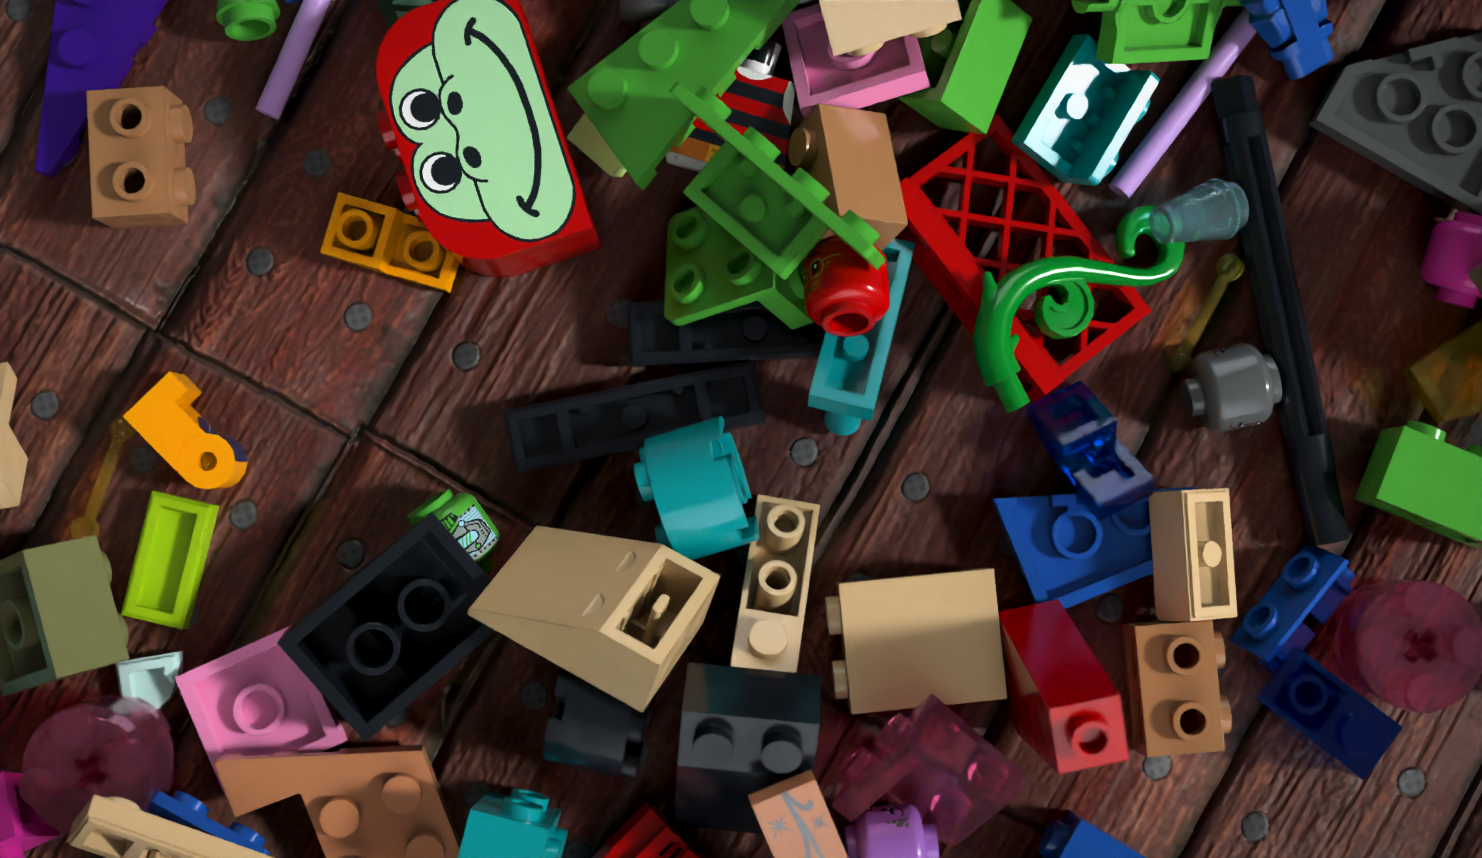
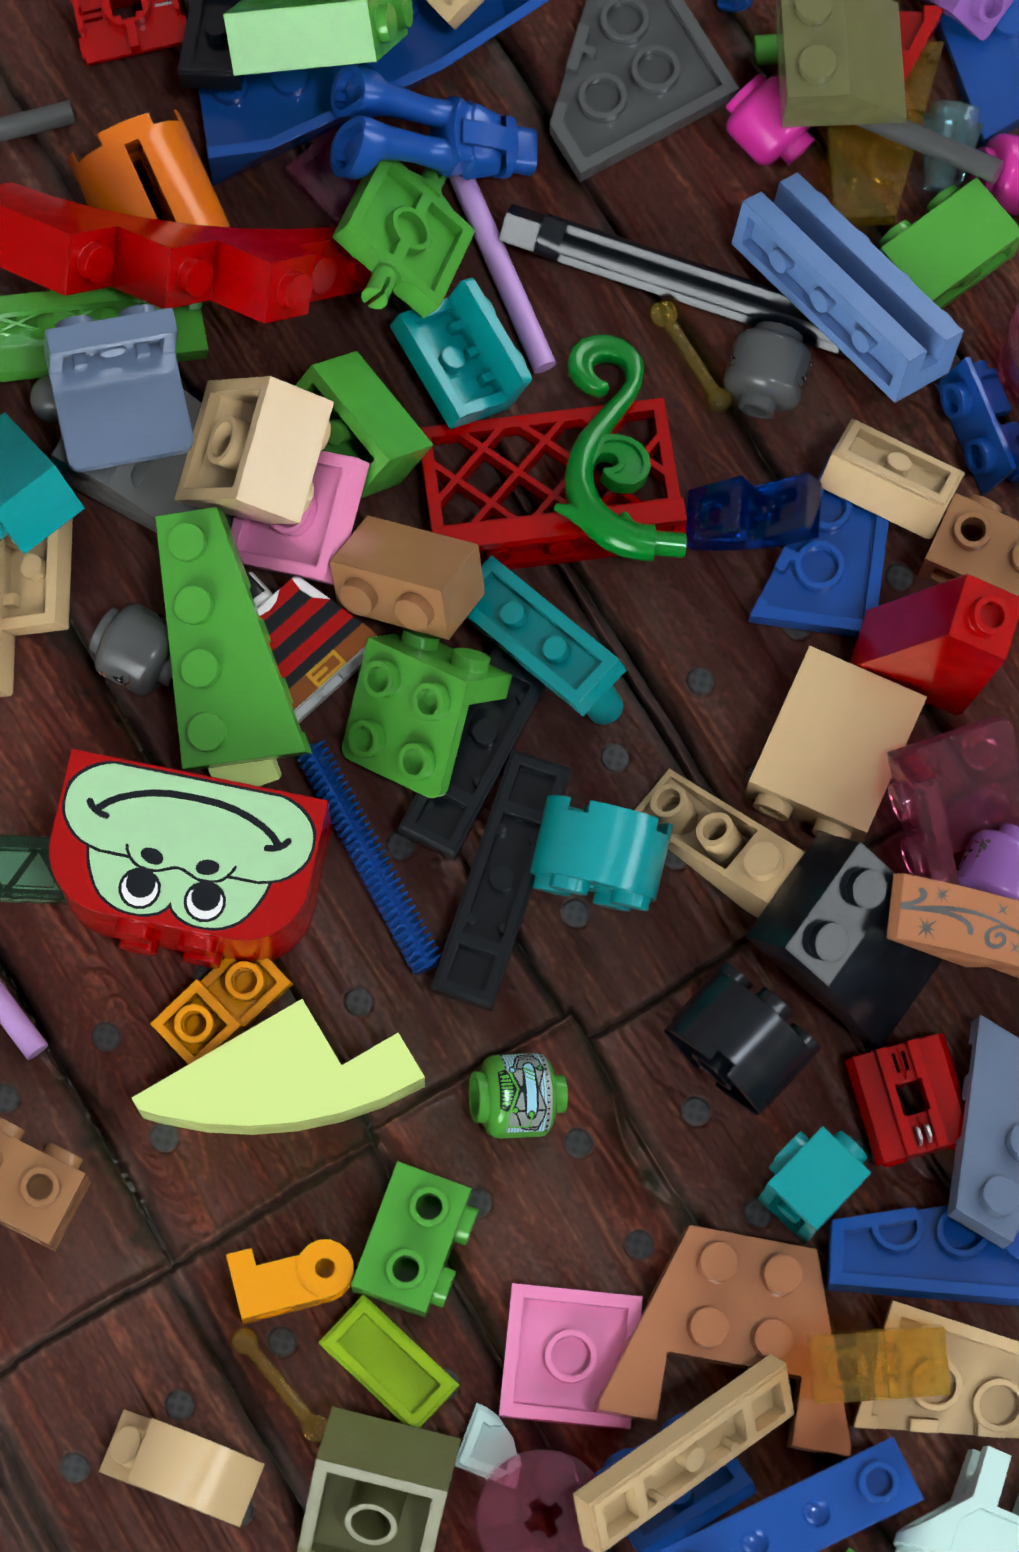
camera: 60 degrees left, 10 degrees down
(276, 521) = (413, 1241): none -> bright green brick
(350, 331) = (280, 1081): none -> yellowish green slope
(392, 627) = (568, 1176): black slope -> none
(590, 293) = (369, 860): none -> blue axle
(600, 607) = (654, 980): tan slope -> none
(759, 202) = (391, 646): bright green bracket -> none
(844, 289) = (500, 623): red head -> none
(1201, 214) = (606, 308): clear light blue cone -> none
(1348, 417) = (847, 287): none -> medium blue brick

